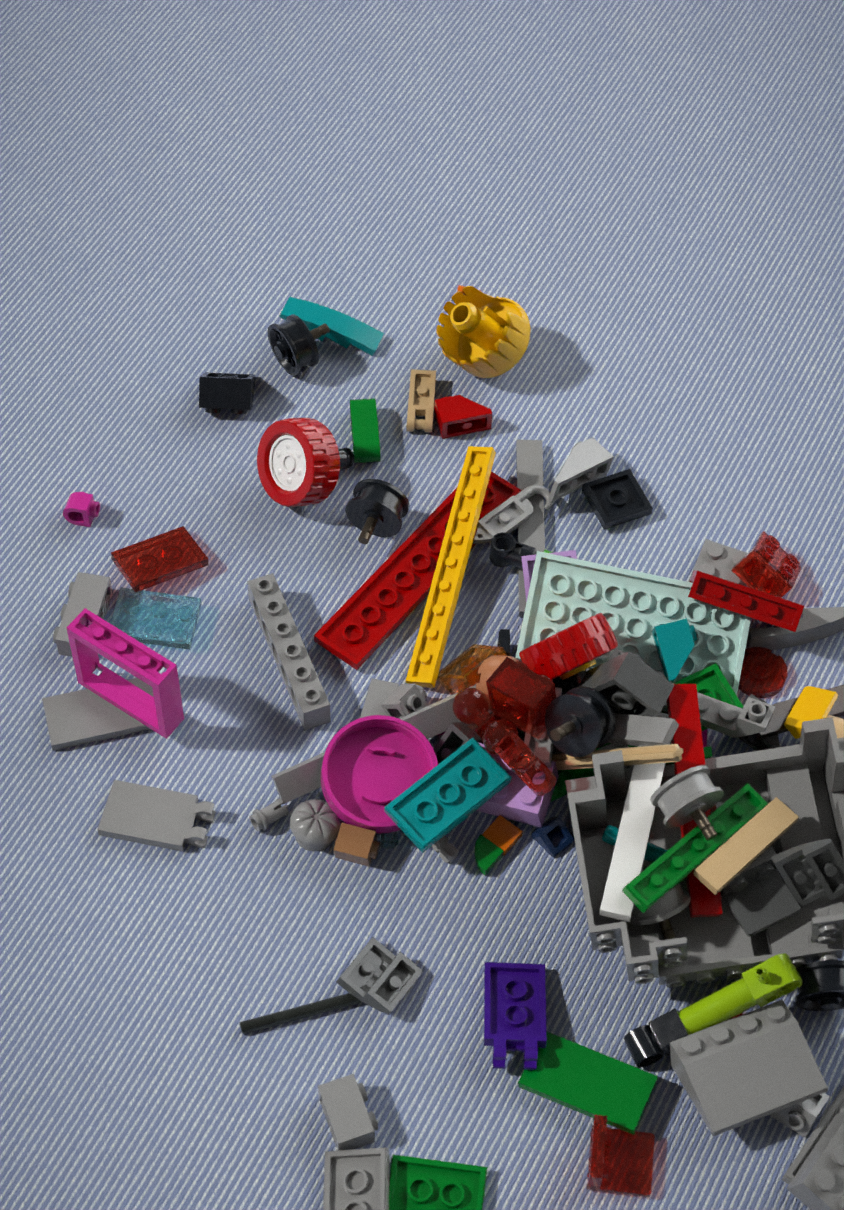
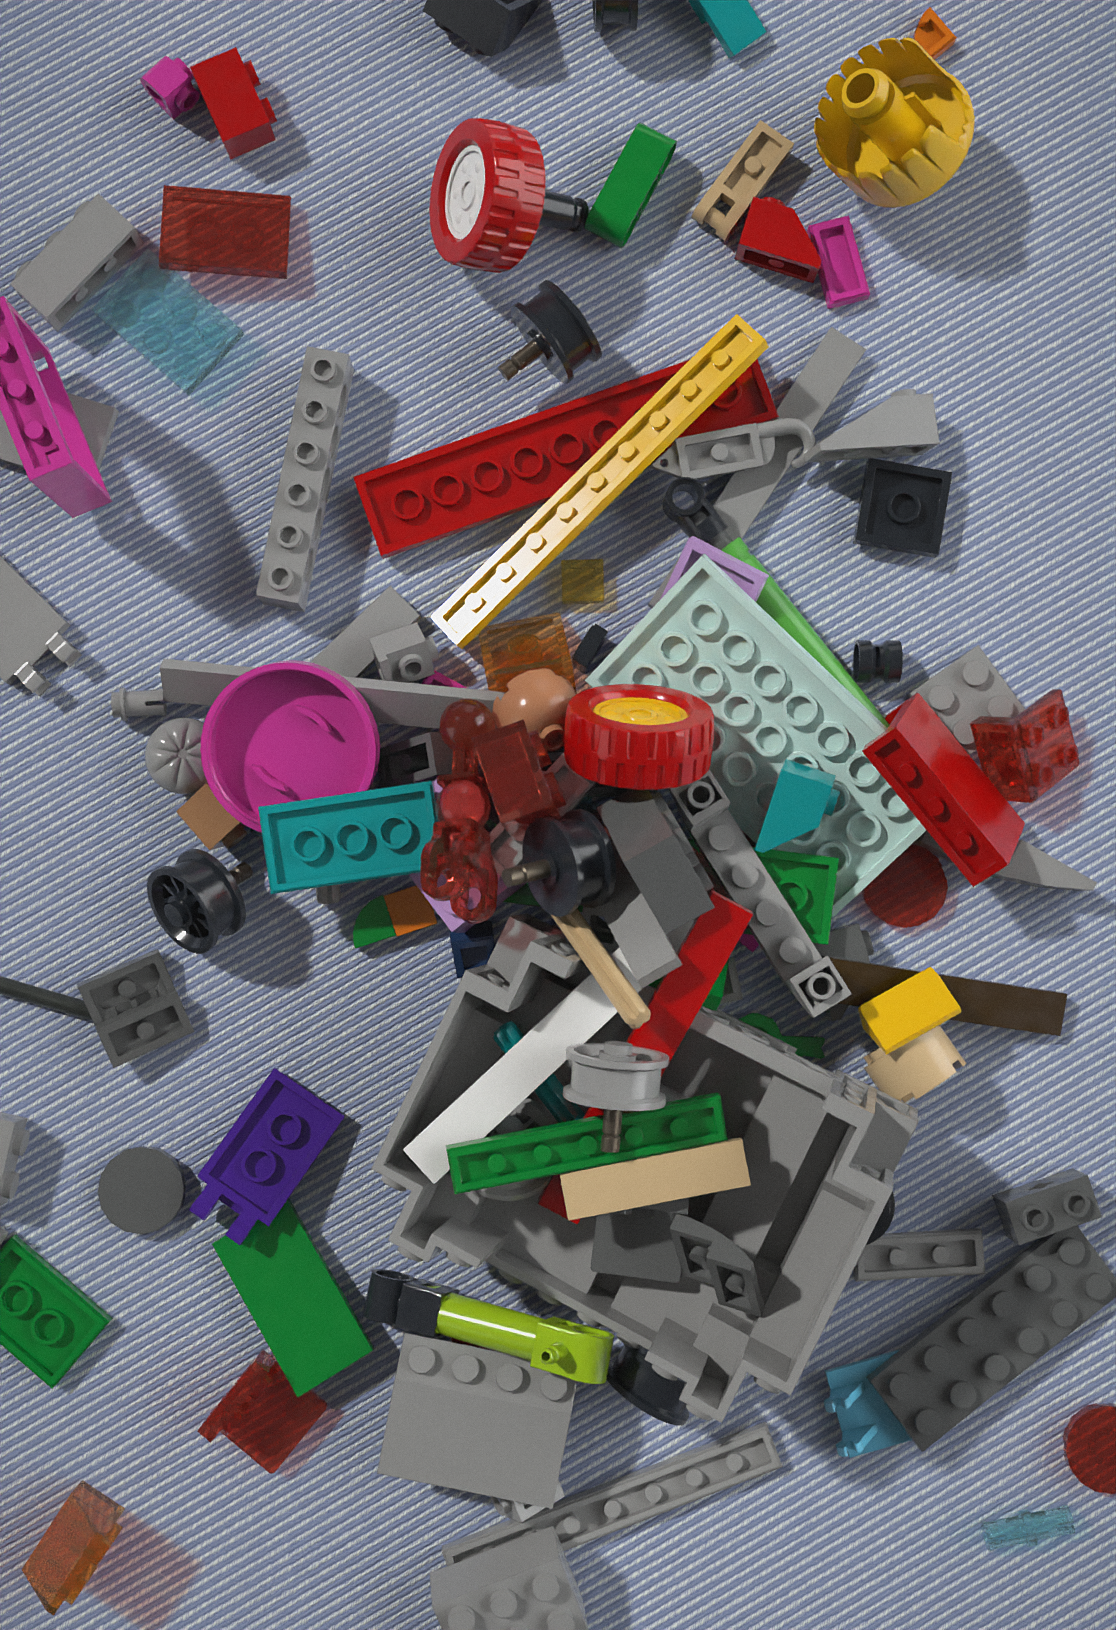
camera: 30 degrees right, 30 degrees up
(123, 499) = (233, 102): none -> red brick
(379, 887) = (198, 899): none -> black wheel
(453, 1079) = (142, 1189): none -> dark grey tile
(475, 622) = (582, 581): none -> clear yellow tile
(503, 415) = (841, 266): none -> dark pink tile
(664, 567) = (877, 661): none -> black wheel

